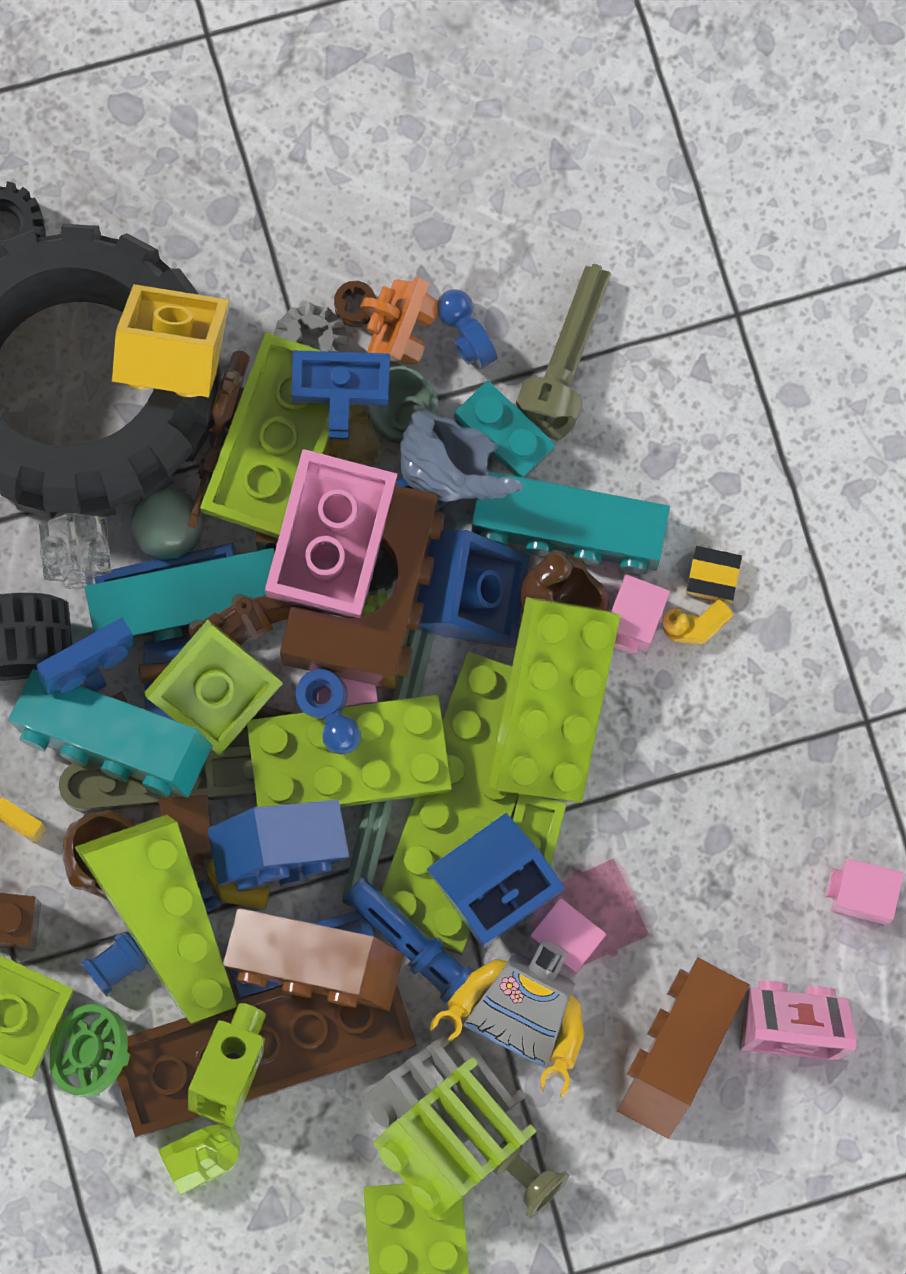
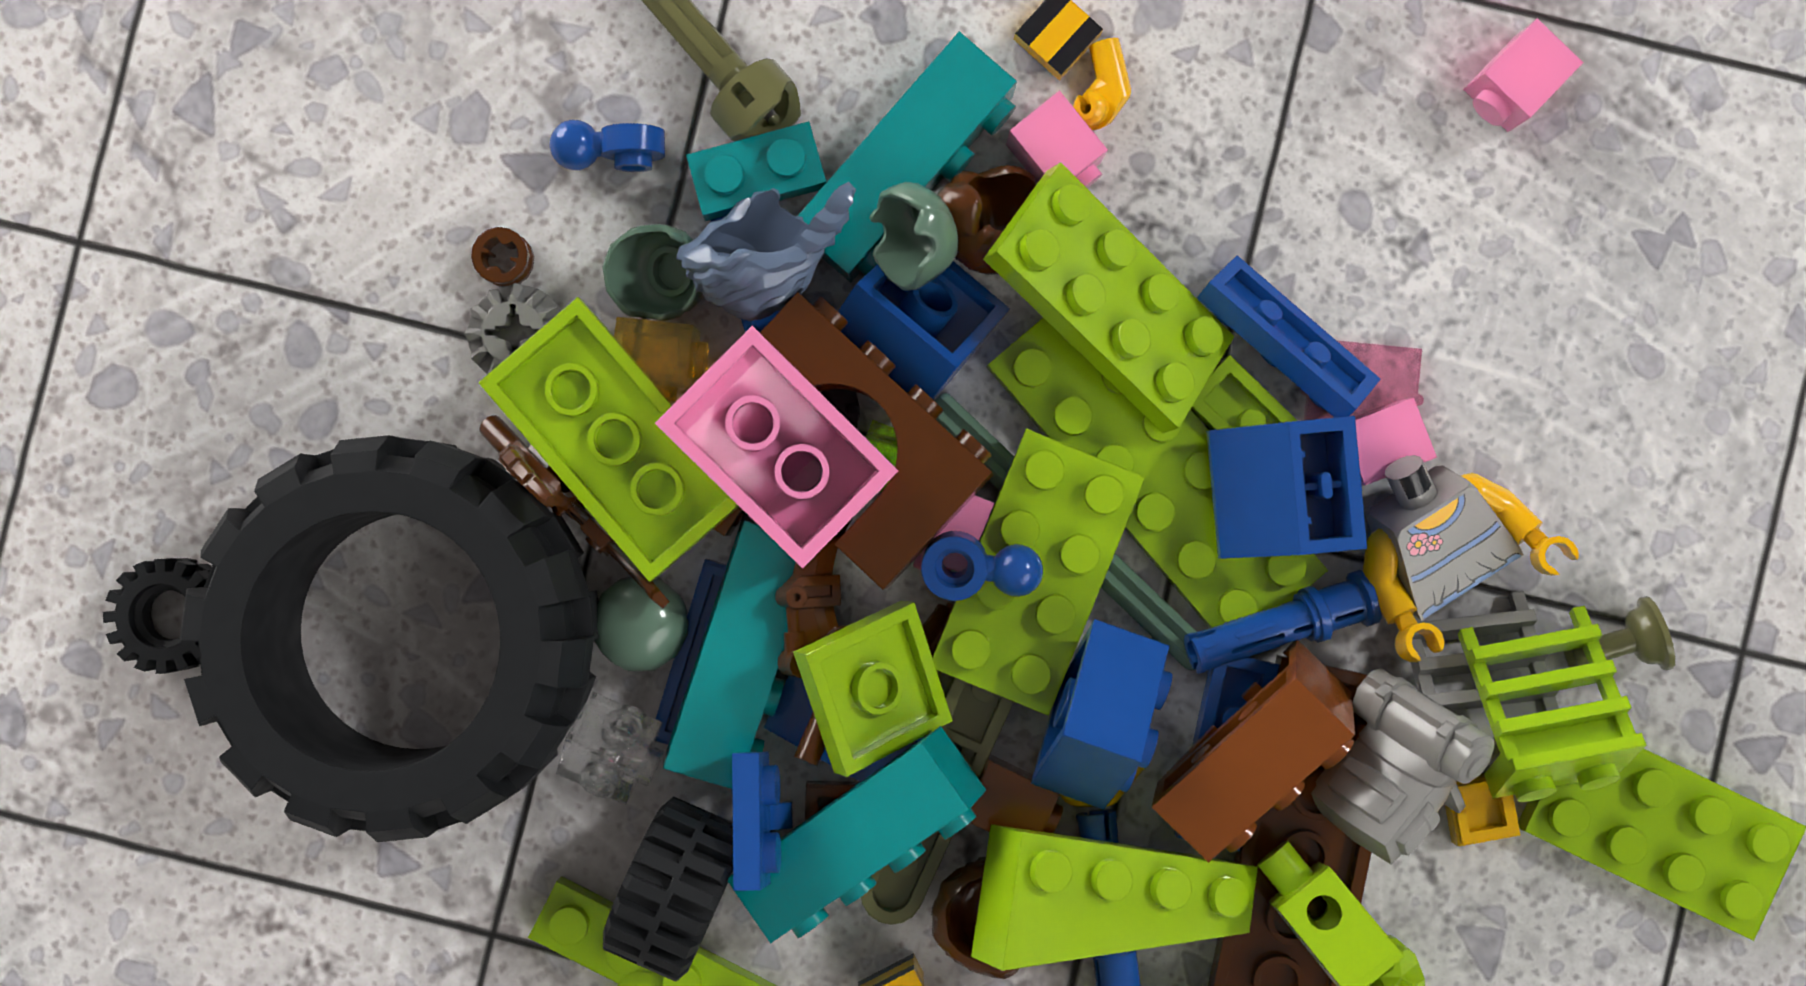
camera: 55 degrees left, 10 degrees up
(169, 341) = (422, 510): yellow slope -> none
(340, 381) = (593, 327): blue plate -> none
(356, 1058) = (1400, 767): none -> light grey piece
(357, 1152) = (1483, 816): none -> yellow tile
(395, 316) = (549, 222): orange hips -> none
(520, 552) = (917, 236): none -> sand green hair
(599, 835) = (1288, 338): none -> blue plate
(682, 1046) = (1584, 383): dark orange wedge -> none
(797, 1023) = (1650, 239): bright pink slope -> none

